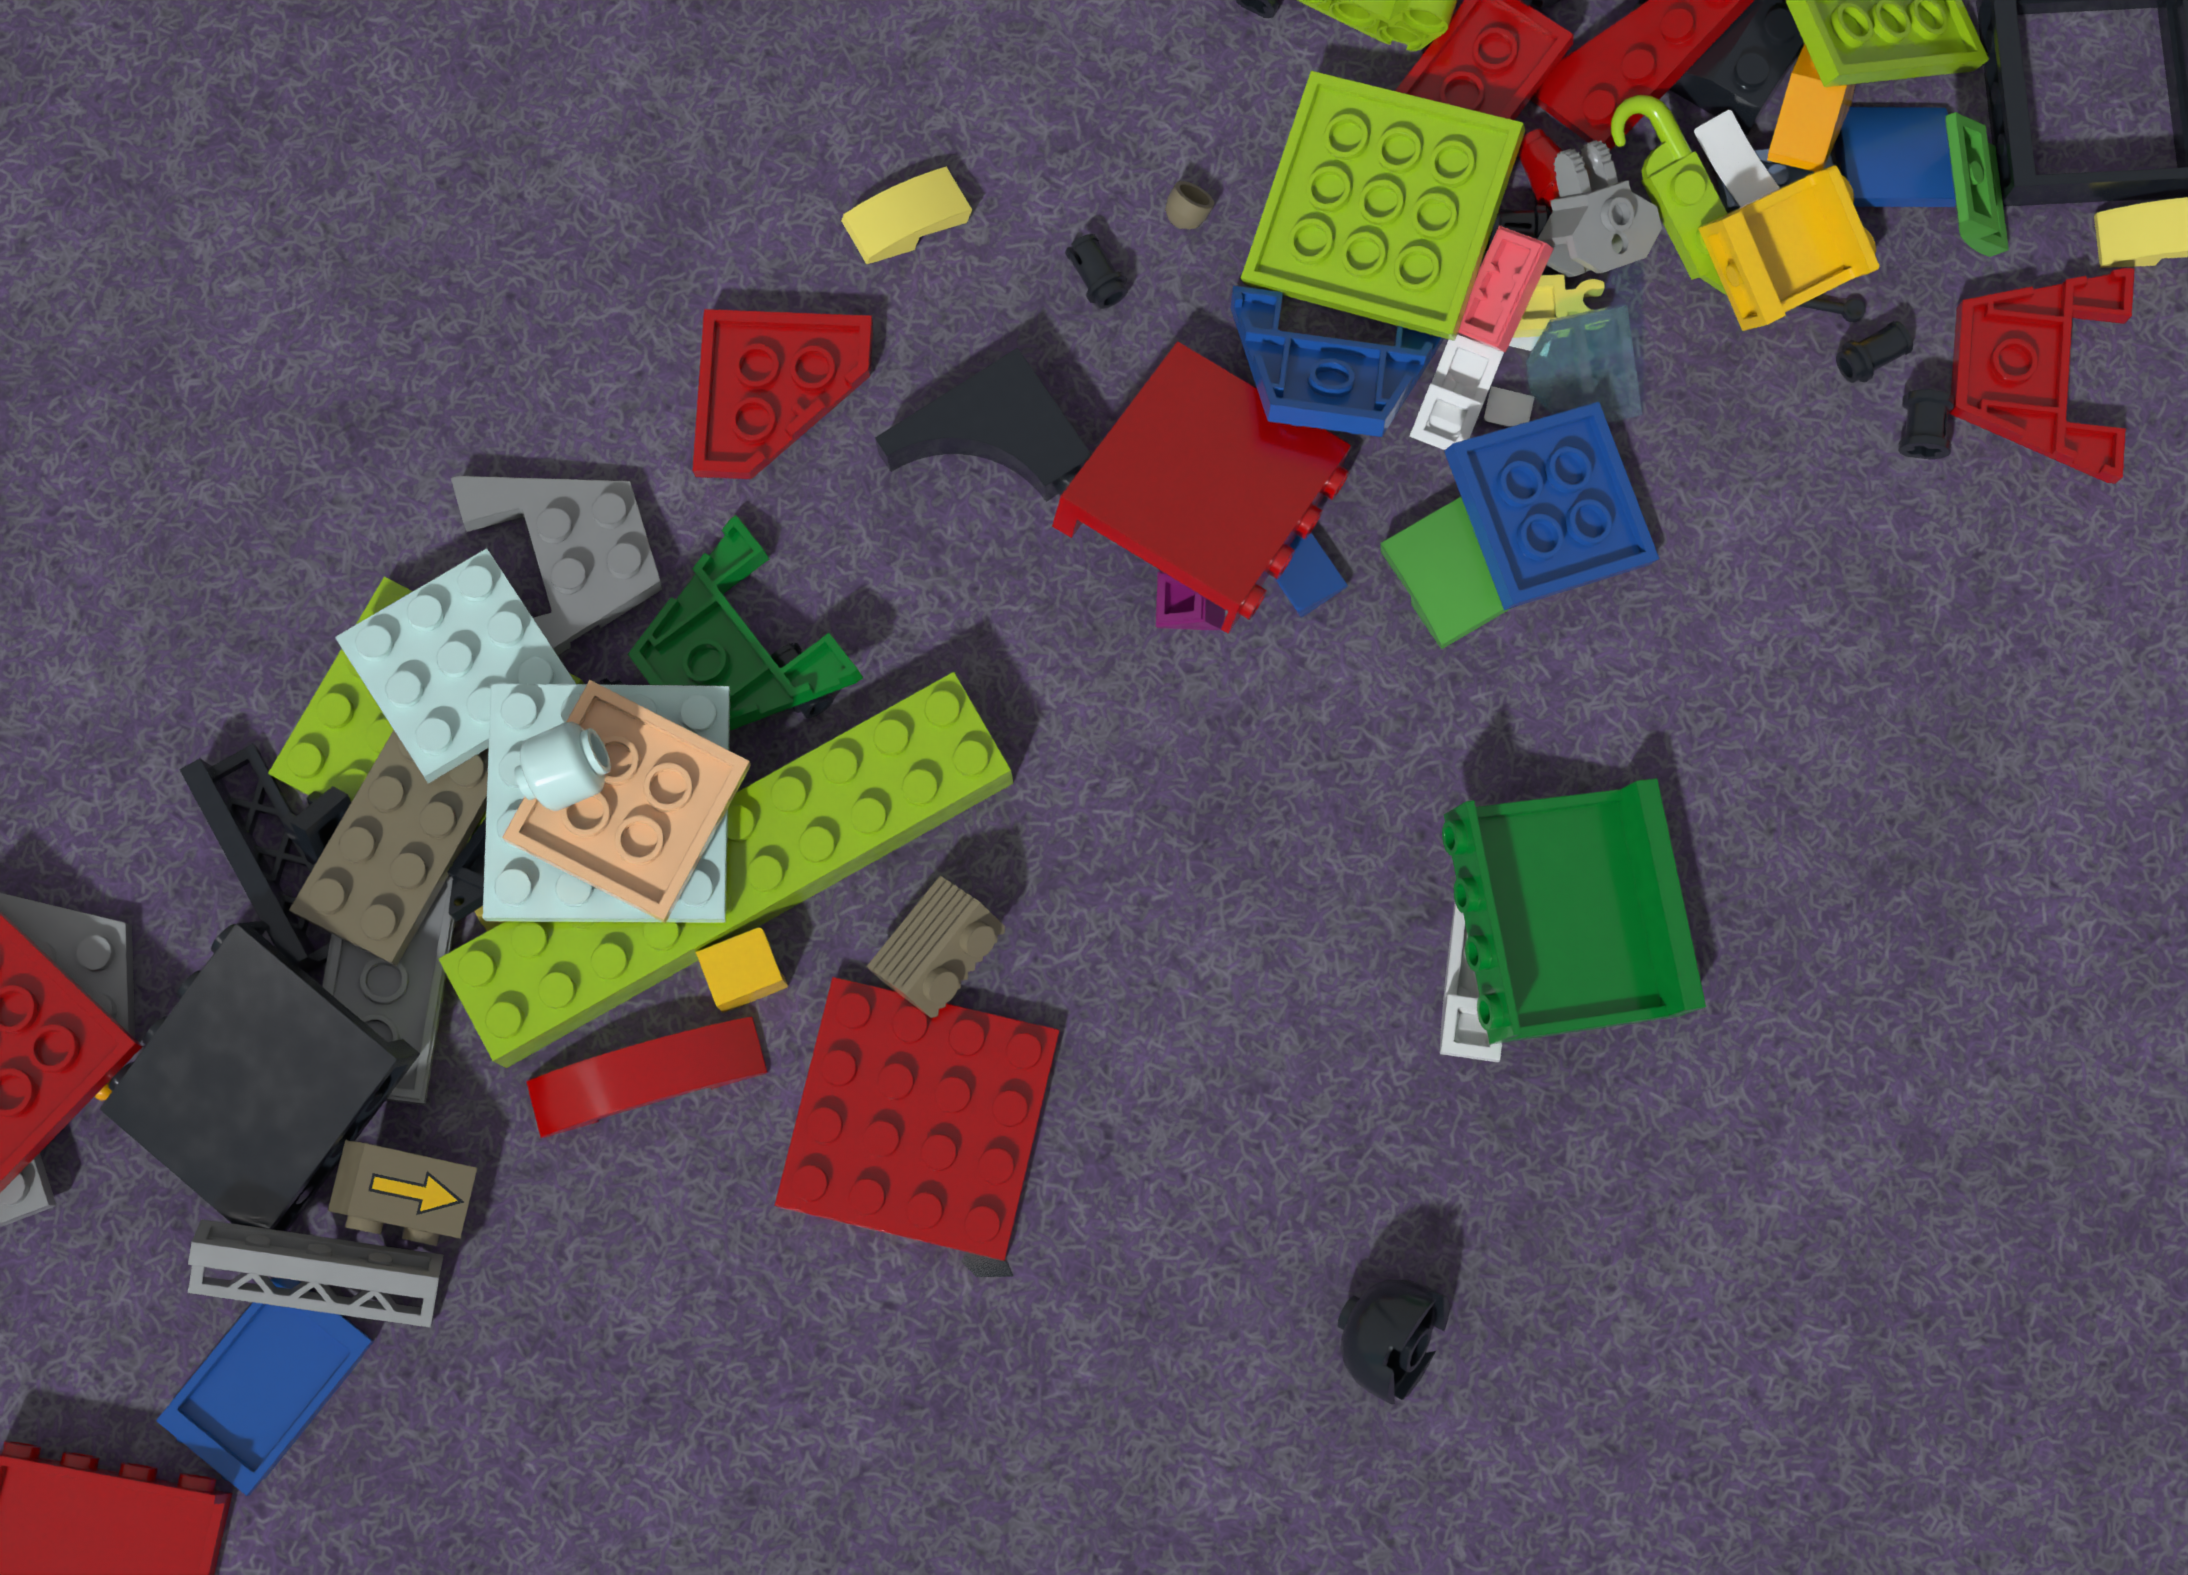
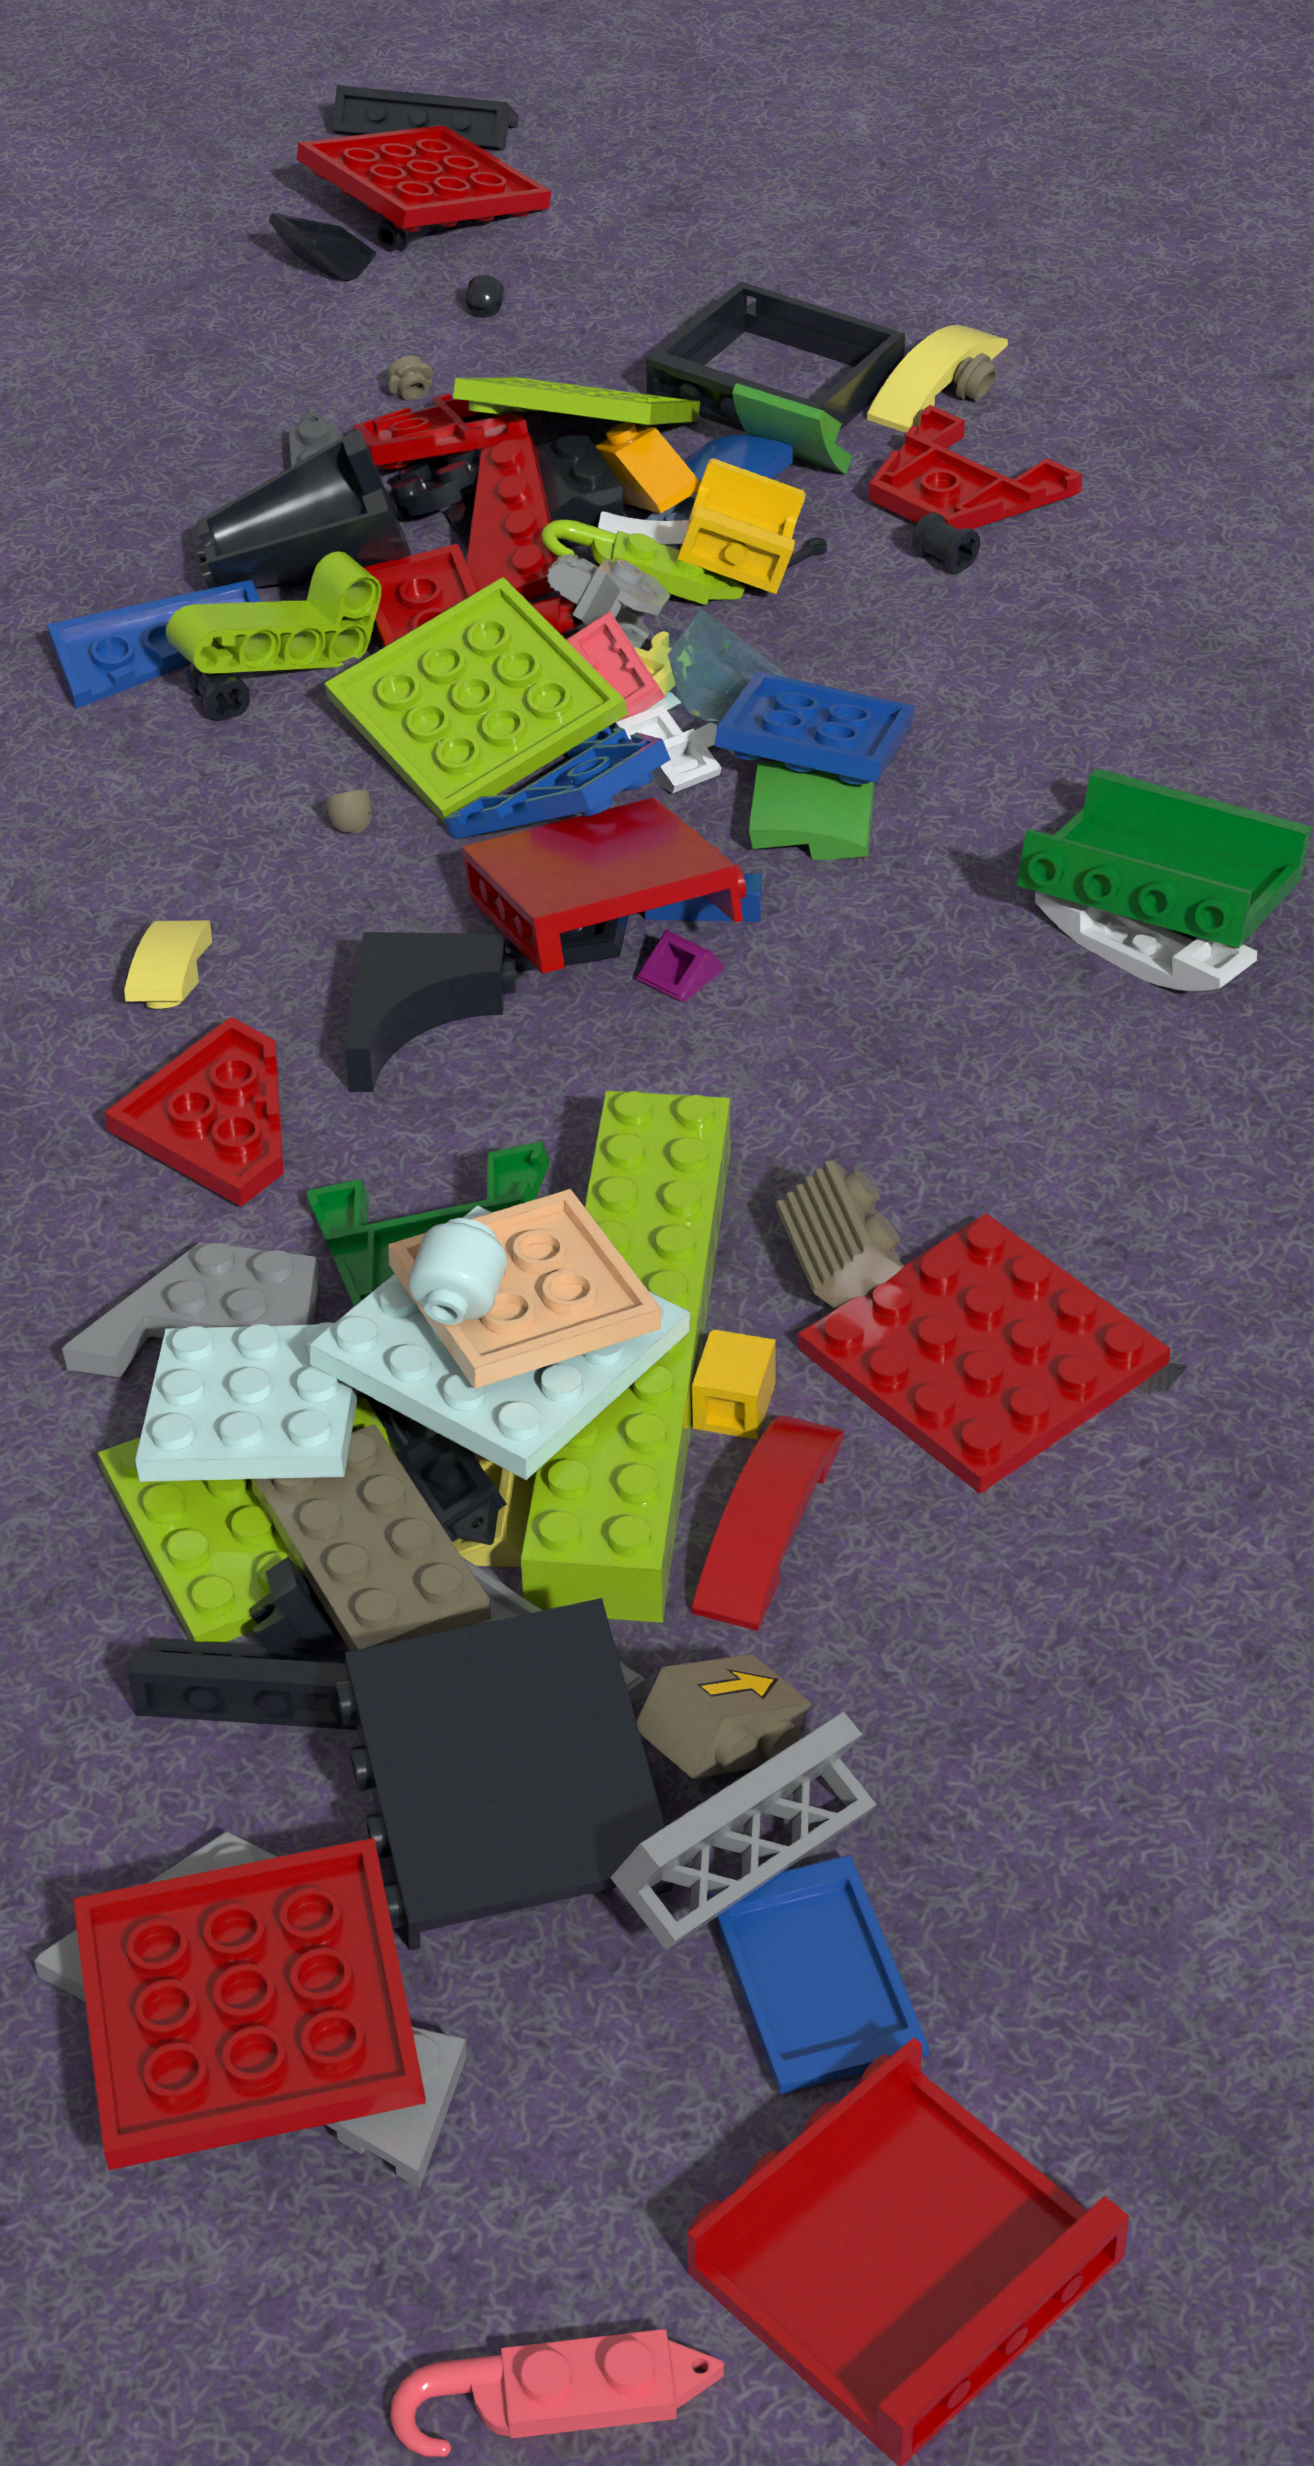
camera: 55 degrees left, 35 degrees down
(1103, 283) = (346, 884): black pin -> none
(1862, 358) = (861, 548): black pin -> none

